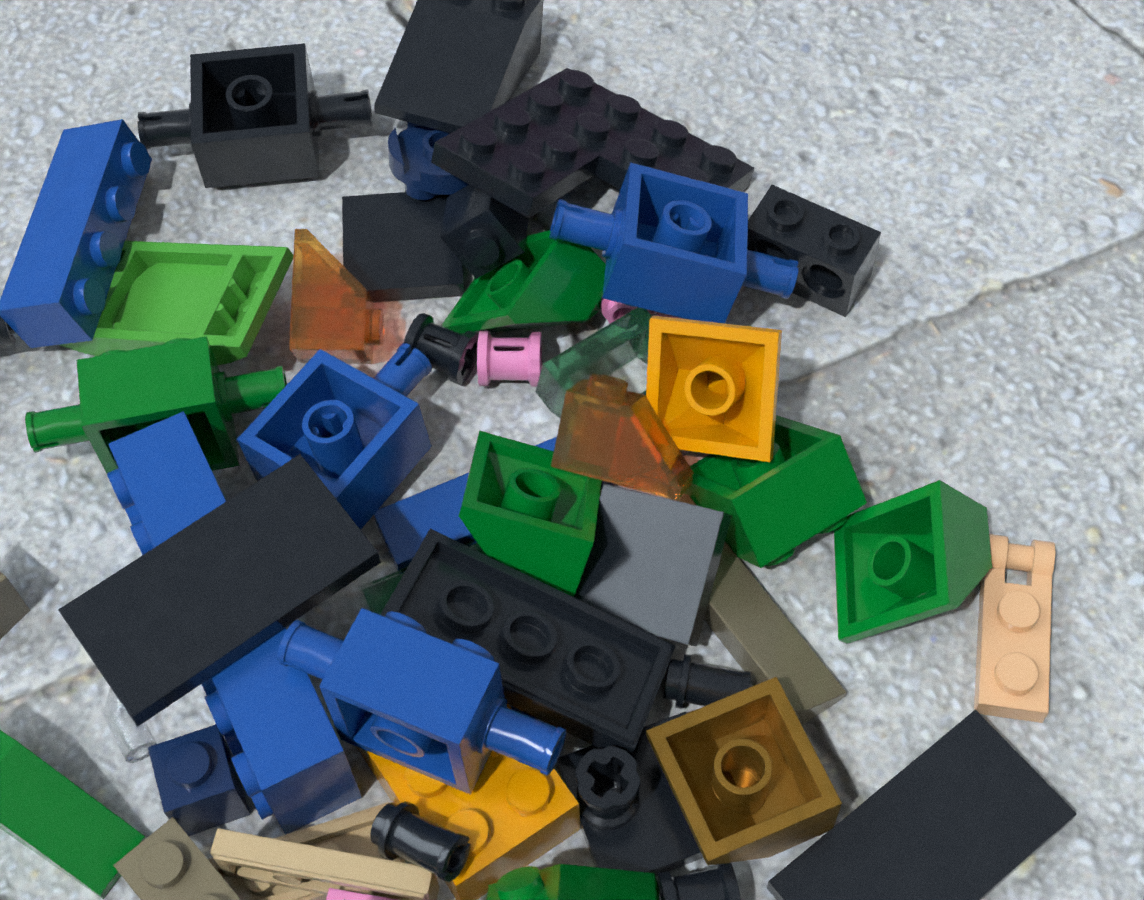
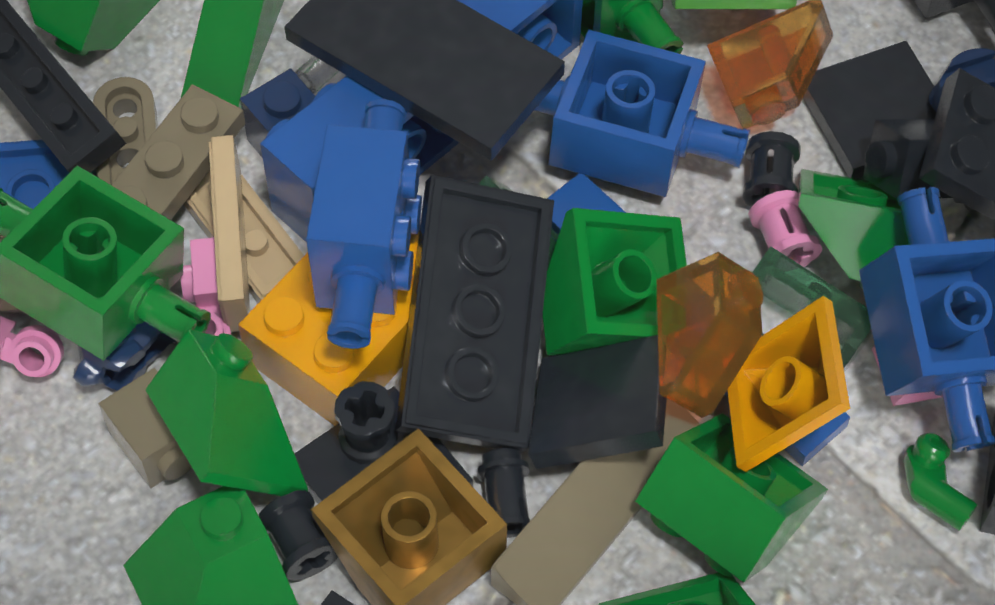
camera: 70 degrees right, 0 degrees up
(406, 834) = (264, 265): black pin -> none
(804, 335) = (929, 484): none -> green arm

